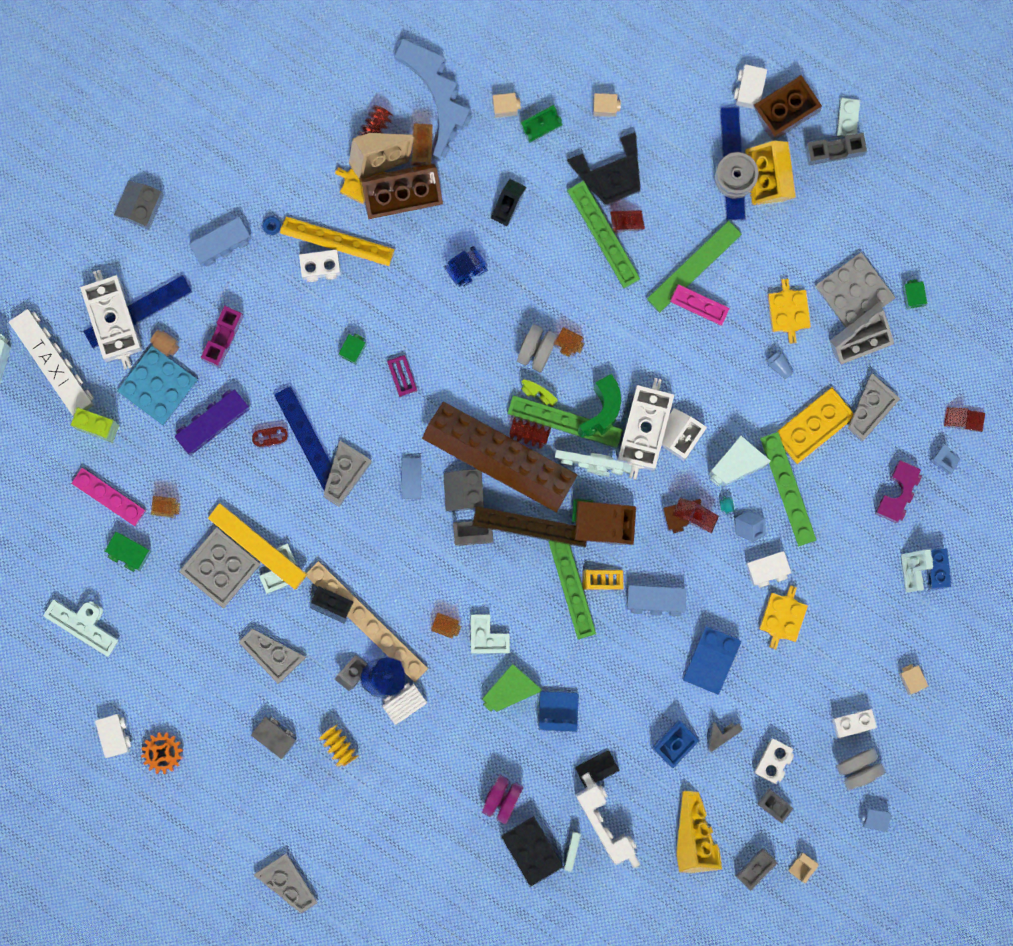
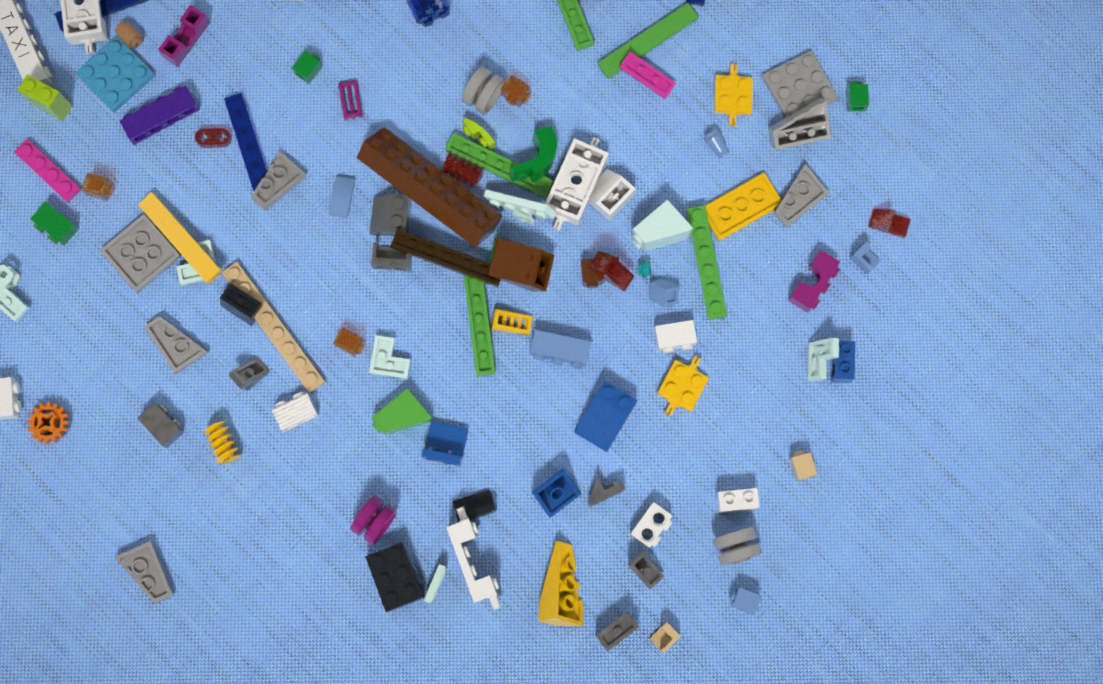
camera: 10 degrees right, 5 degrees down
(383, 677) = (277, 391): clear blue brick -> none

